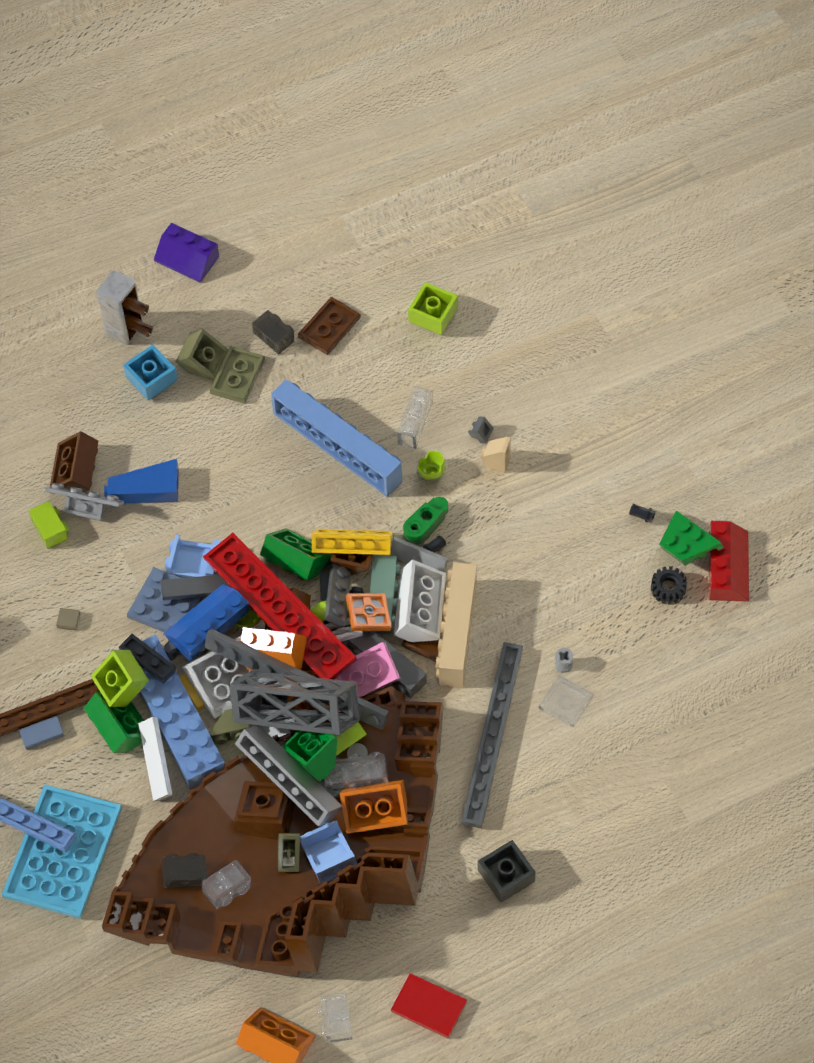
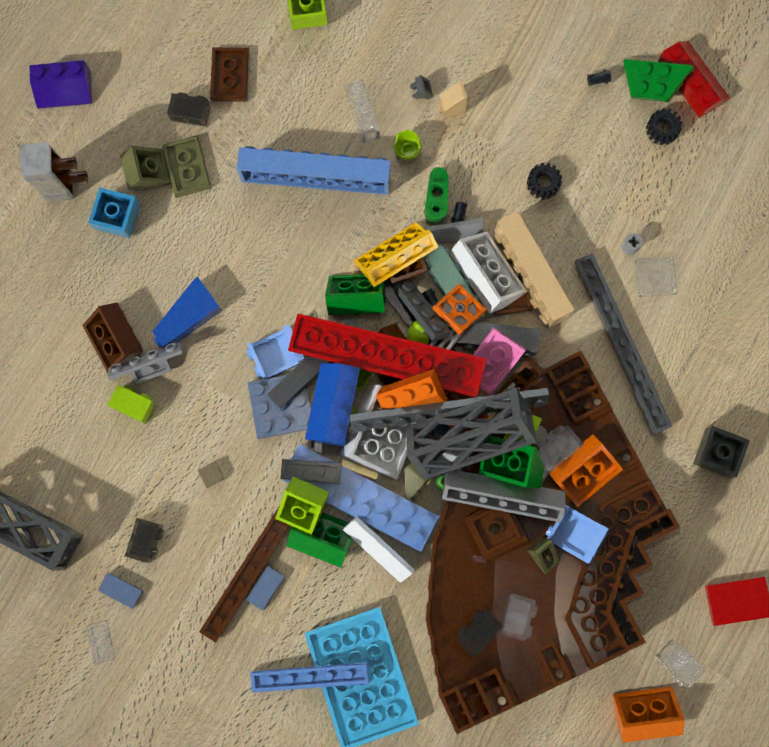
camera: 35 degrees left, 20 degrees up
(527, 554) = (544, 191): none -> black tyre

